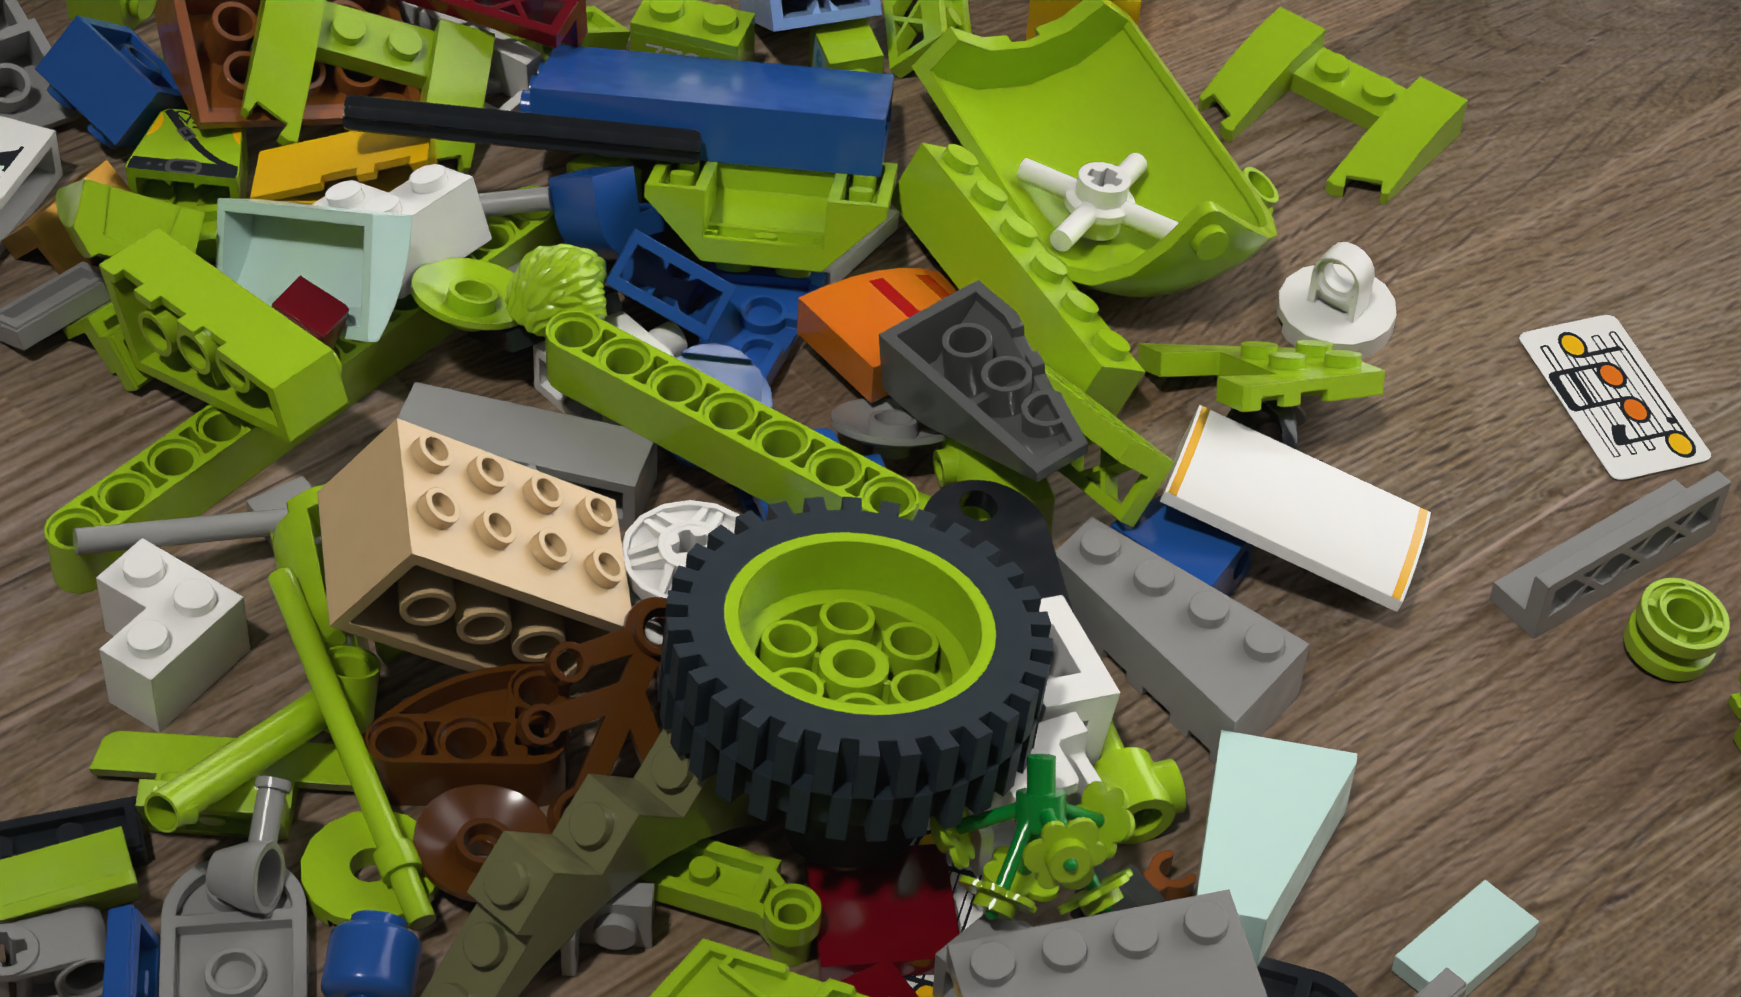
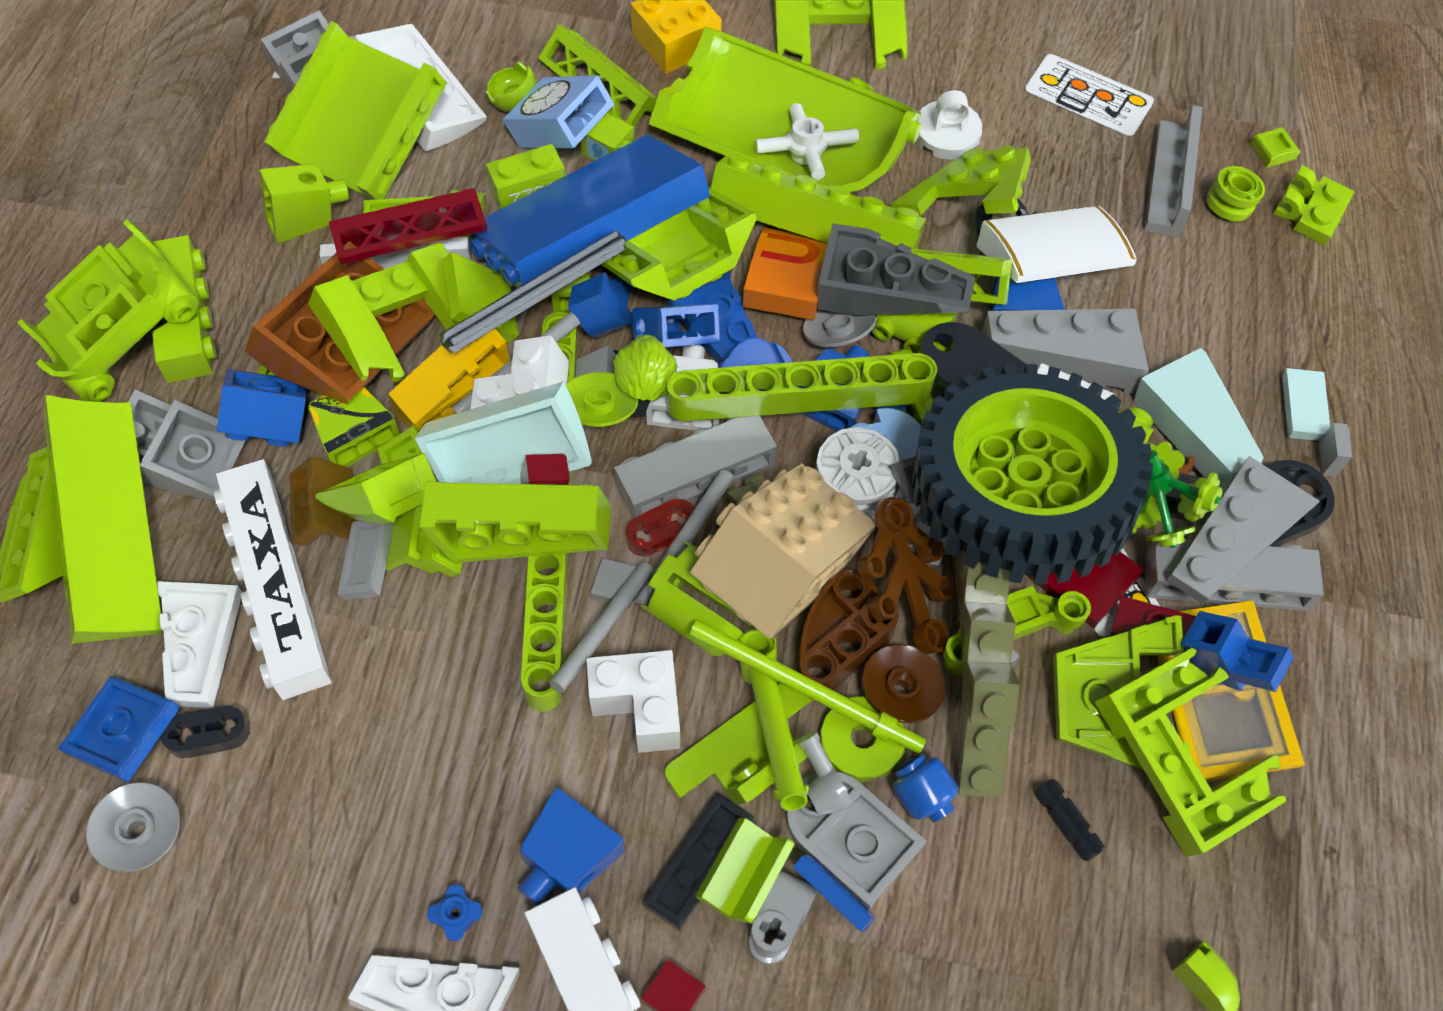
camera: 40 degrees left, 15 degrees up
(481, 83) = (473, 288): none -> lime tile

